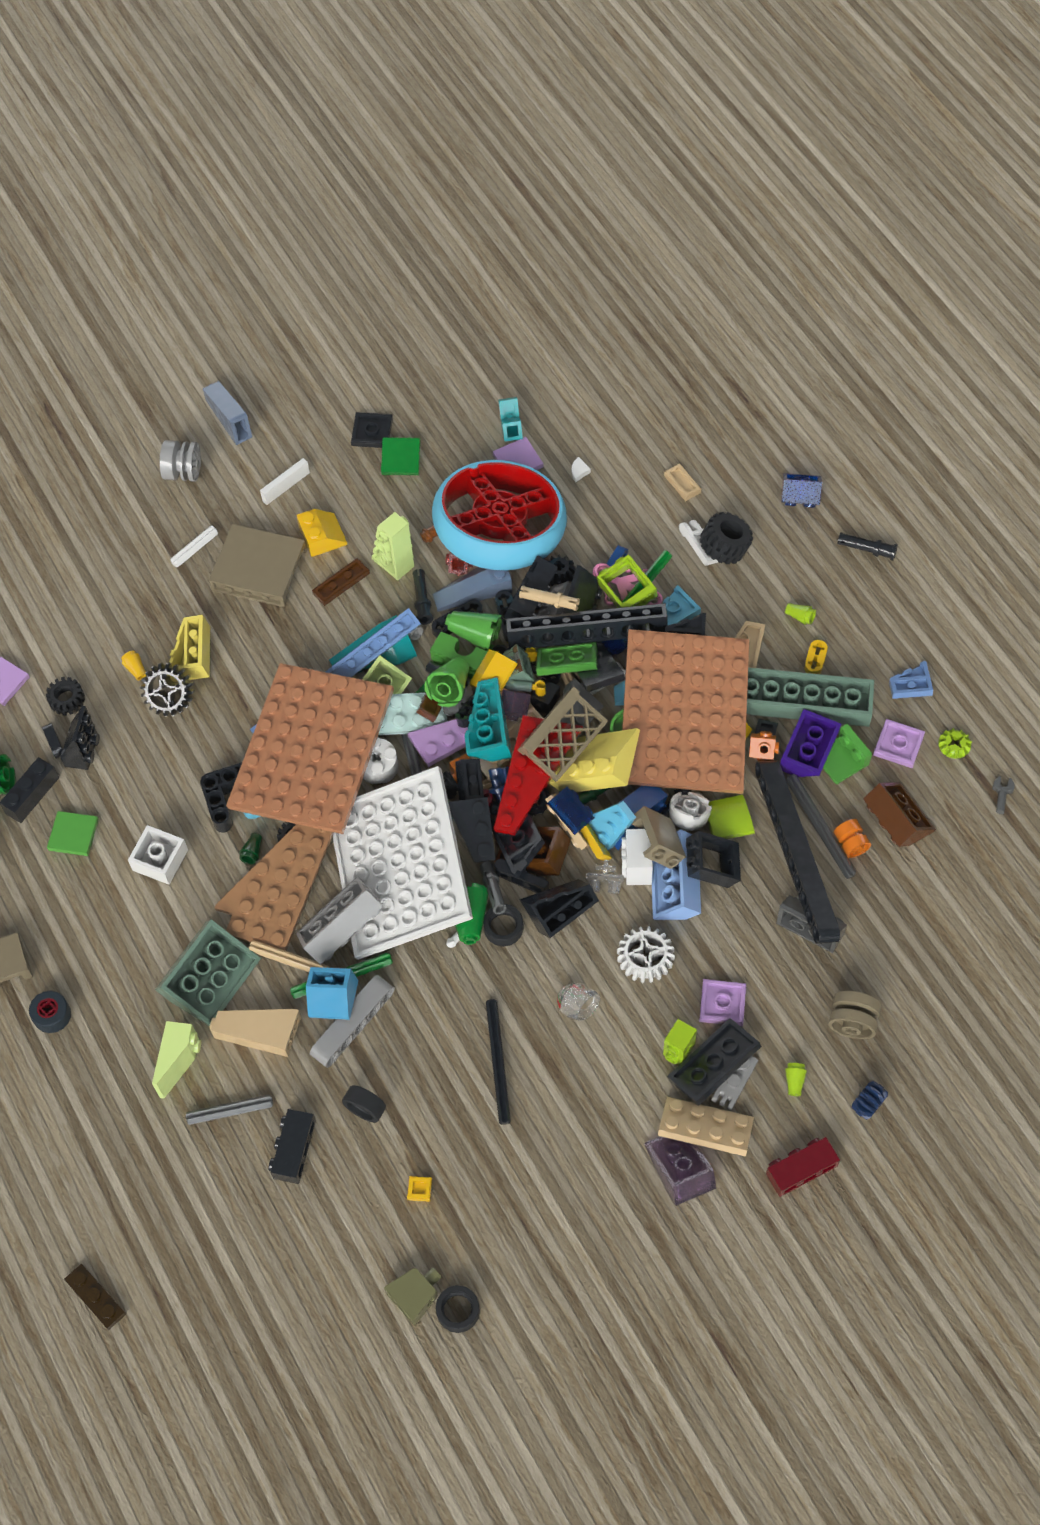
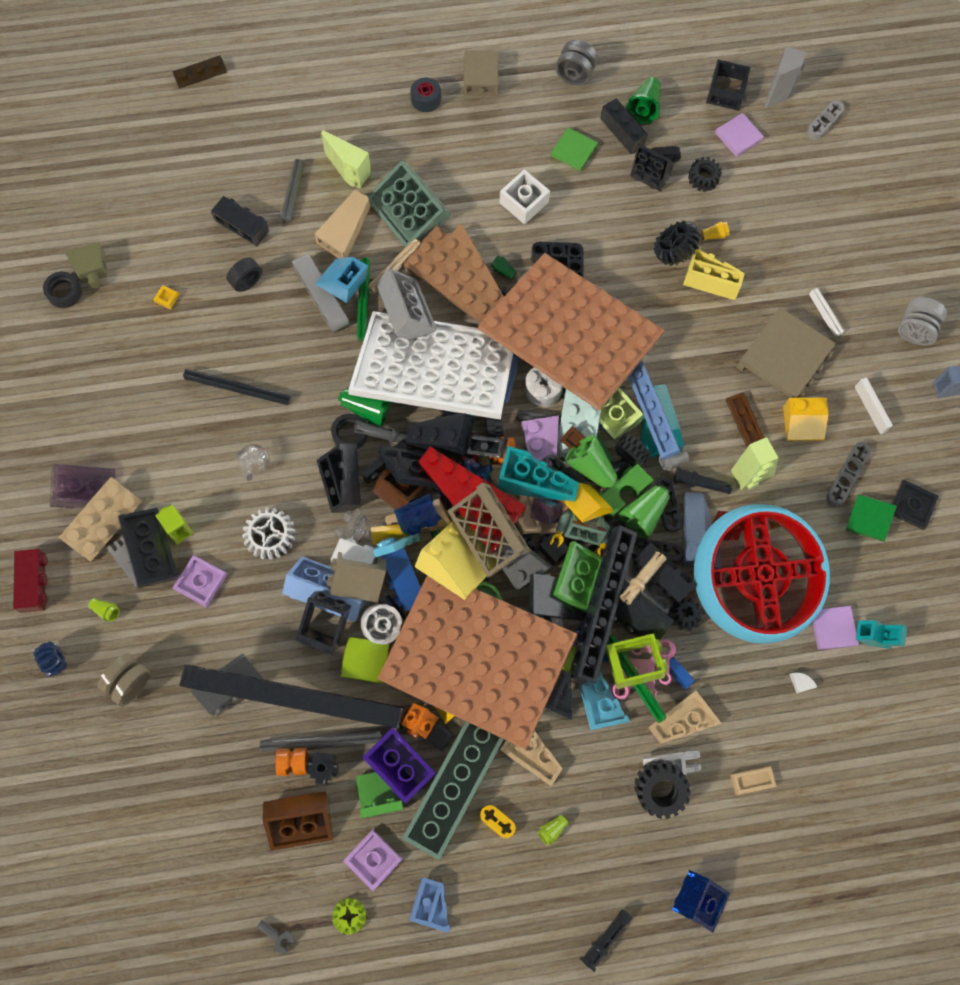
camera: 105 degrees right, 10 degrees up
(361, 488) = (849, 474): none -> dark grey beam
(418, 658) = (632, 450): none -> black tyre
(651, 543) = (684, 719): none -> tan wing
(843, 808) = (318, 761): none -> black brick

